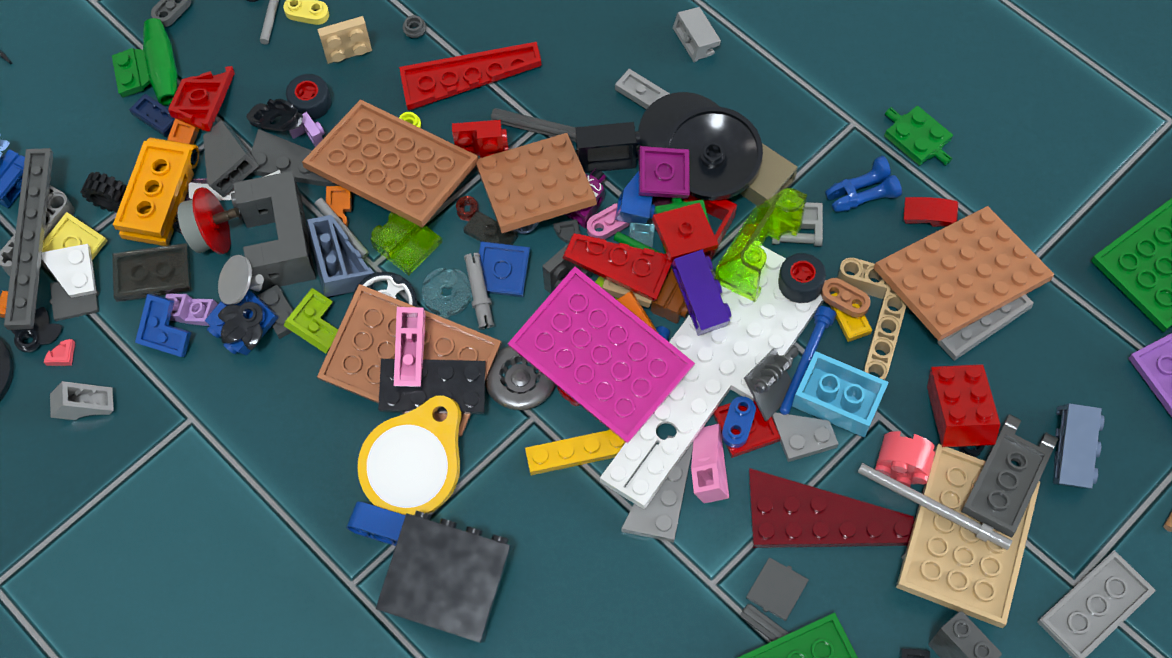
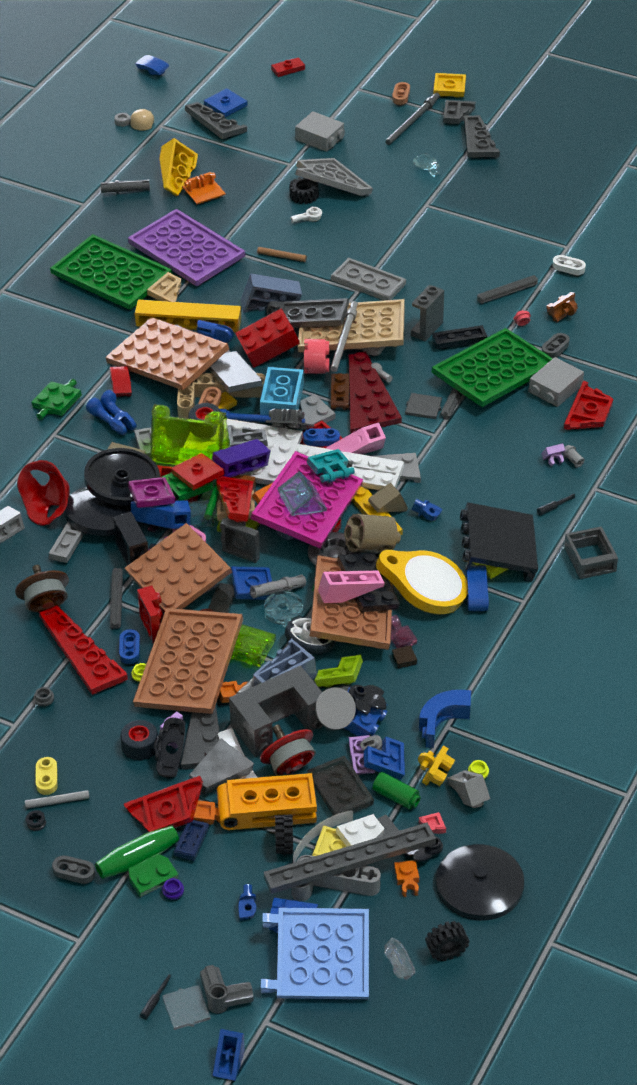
camera: 110 degrees left, 20 degrees down
(49, 140) = (247, 899): none -> blue piece
(104, 85) = (173, 889): none -> dark purple plate
(105, 425) = (479, 767): none -> neon yellow plate
(109, 261) = (329, 822): none -> white sticker
(114, 326) = (396, 791): none -> green brick
(132, 376) = (441, 760): none -> yellow hips
(188, 318) = (373, 741): none -> light grey piece
(211, 422) = (443, 707): none -> blue arch
(315, 404) = (404, 656): none -> dark brown tile
(345, 39) = (80, 723): tan plate -> none
(349, 412) = (401, 635): none -> clear pink plate
(450, 116) = (129, 646): none -> blue plate
(511, 412) = (371, 533): none -> dark tan cylinder
(555, 42) = (43, 589): none -> reddish brown piece
(559, 514) = (426, 509): none -> blue piece
(581, 466) = (388, 500): none -> dark tan slope
(591, 340) = (301, 496): none -> clear light blue slope
(656, 395) = (327, 462): none -> teal plate
(722, 85) = (40, 497): none -> red piece
(751, 317) = (246, 434): none -> dark grey wing
(837, 480) = (340, 391): none -> reddish brown plate
(877, 550) = (381, 373): none -> light grey bar
(889, 337) = (234, 373): none -> tile
(1009, 347) = (215, 331): none -> blue arm
(1052, 326) = (188, 314): none -> yellow brick
(1124, 314) = (165, 288): none -> tan wing

